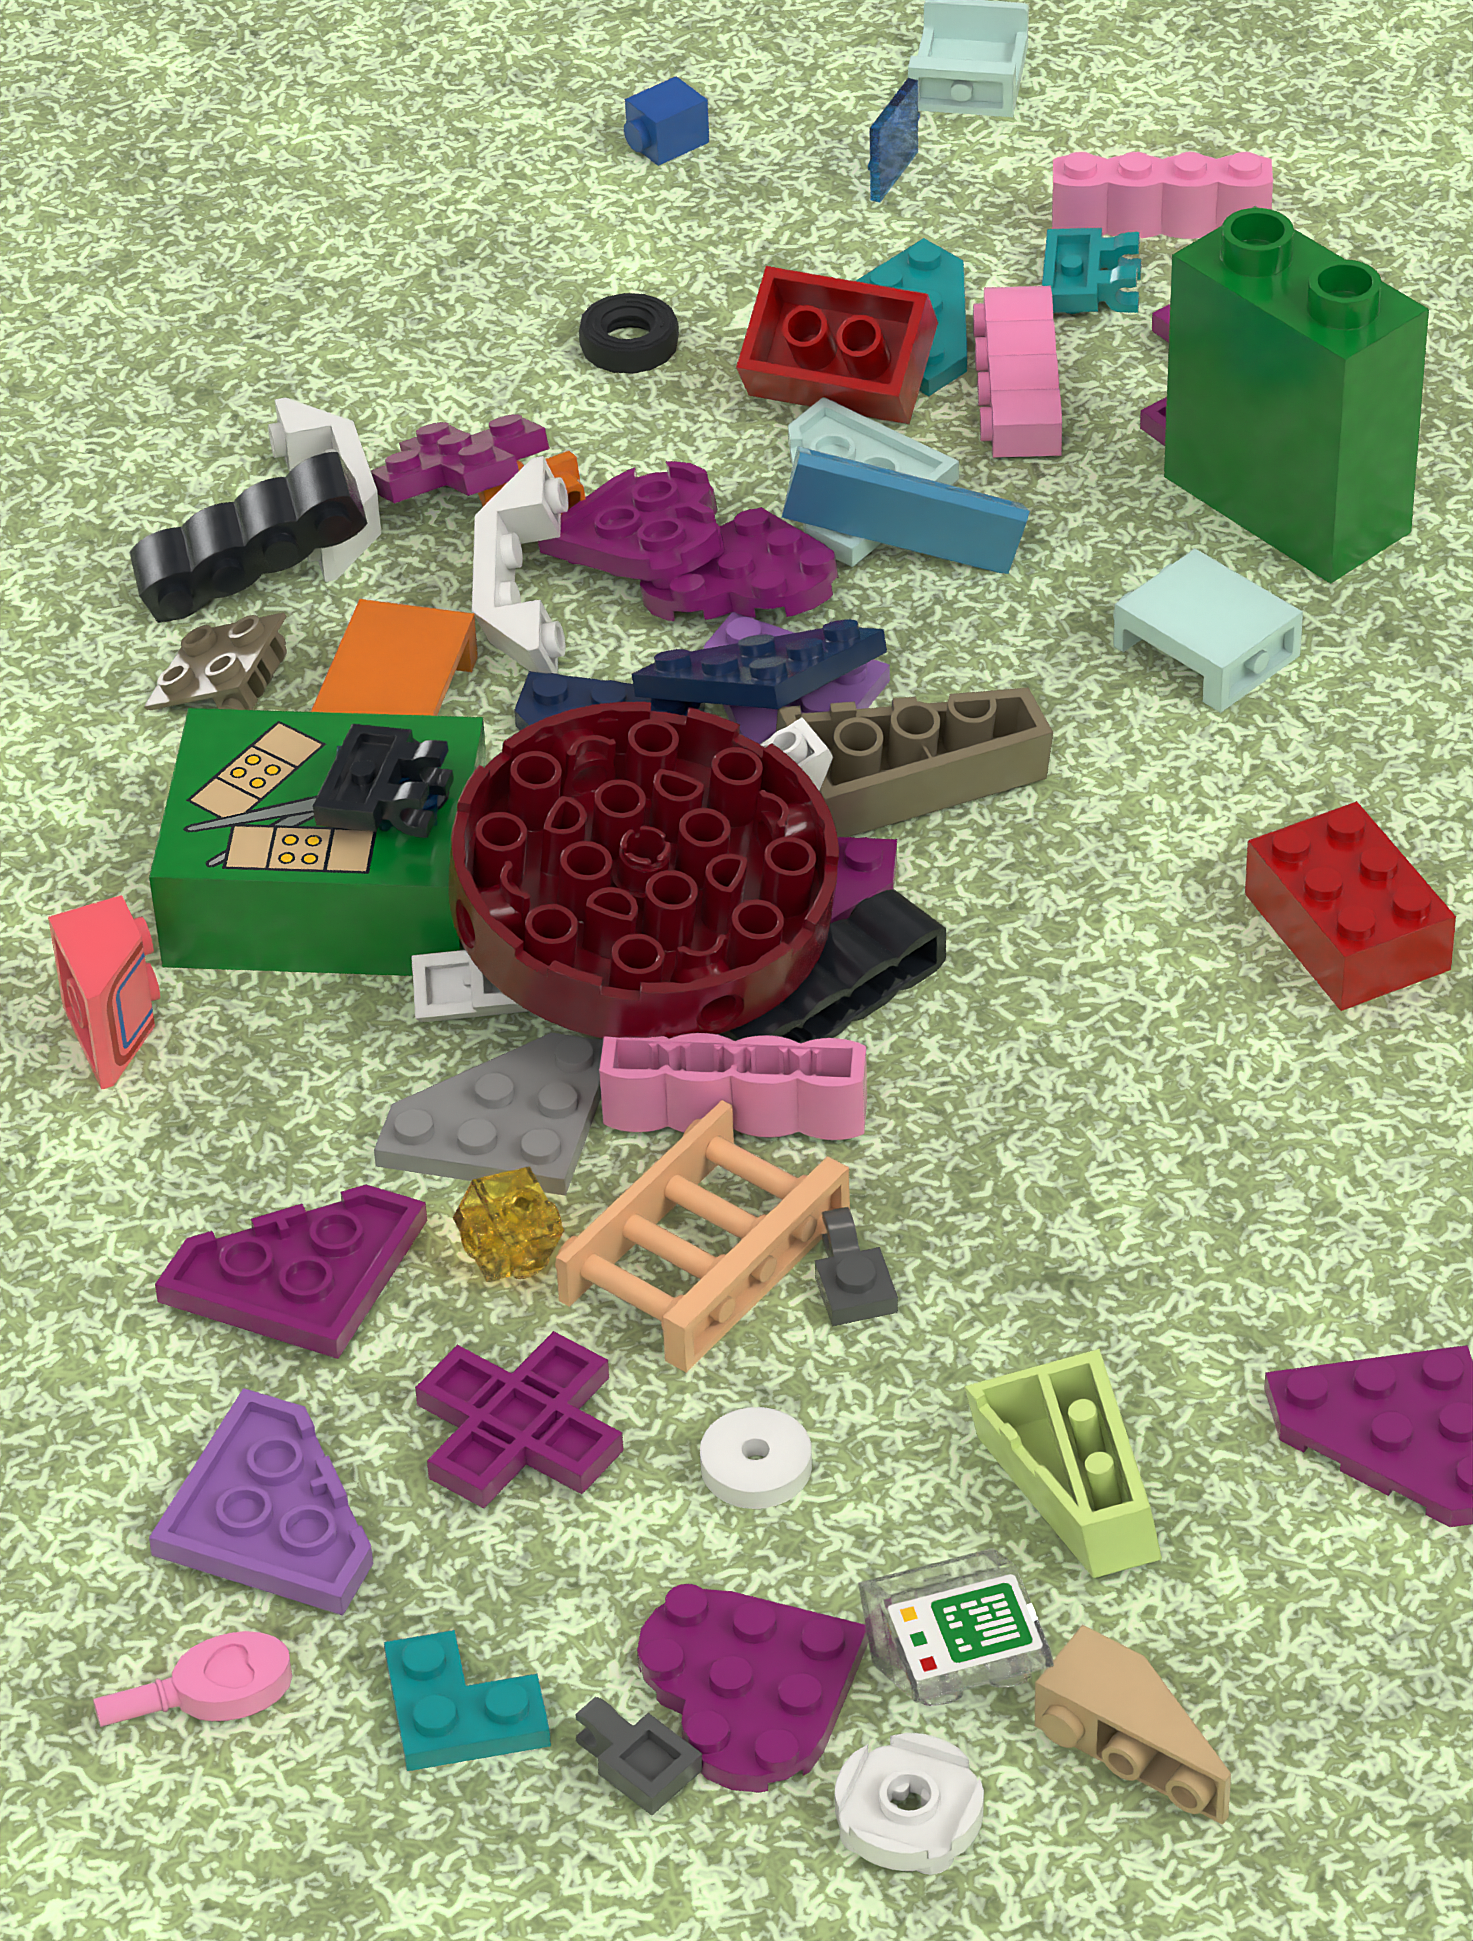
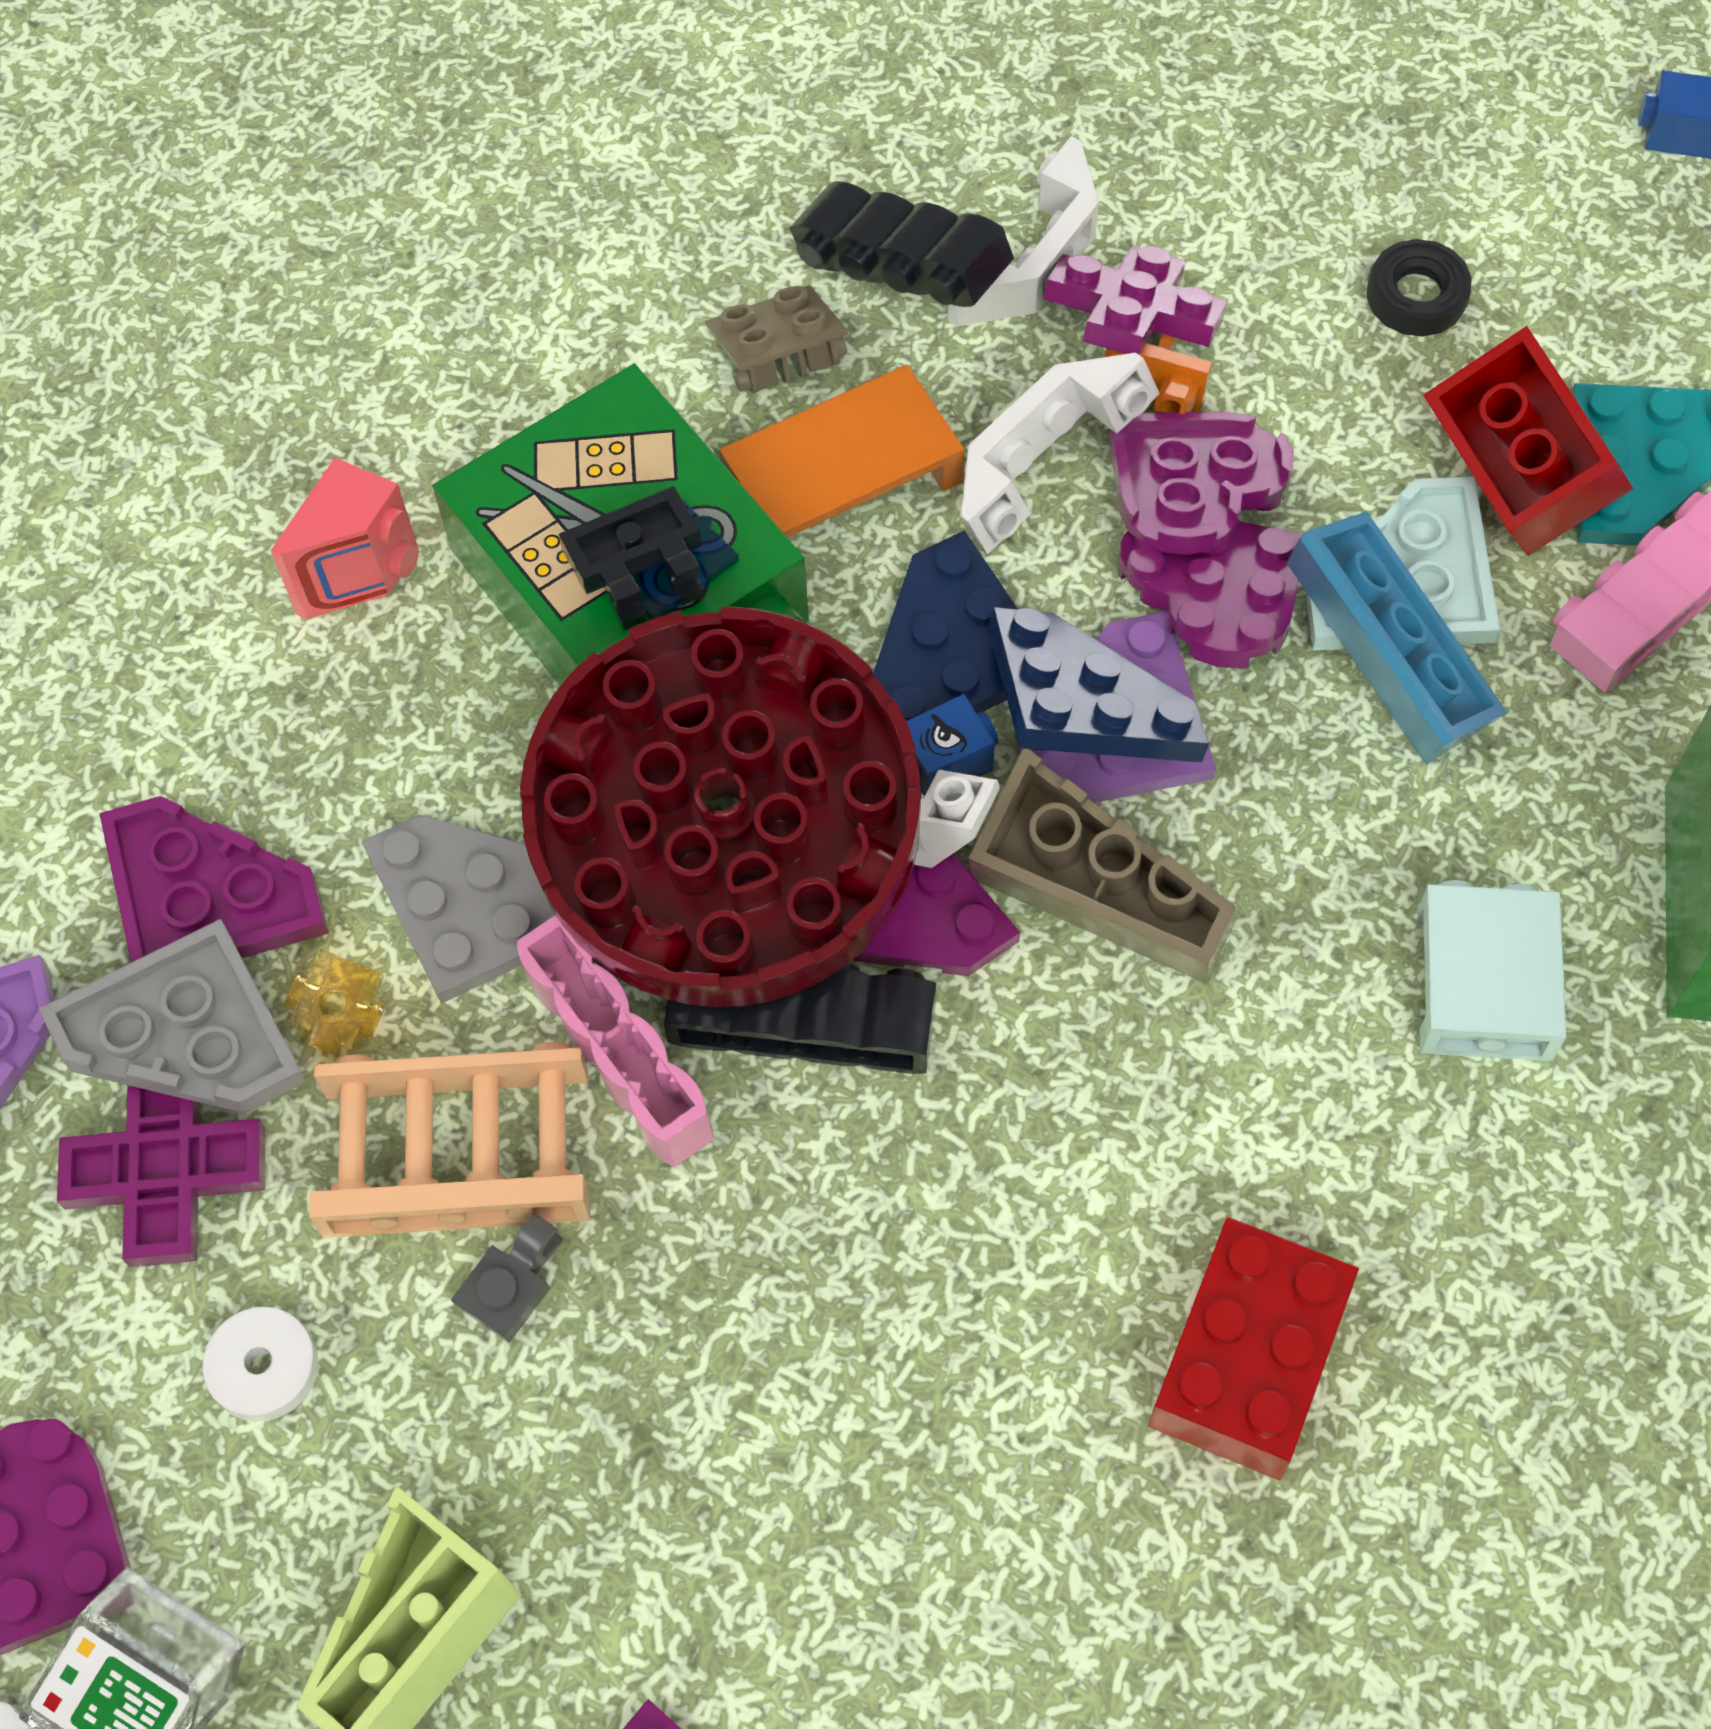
camera: 50 degrees right, 20 degrees up
(424, 1316) = (178, 1026): none -> light grey plate

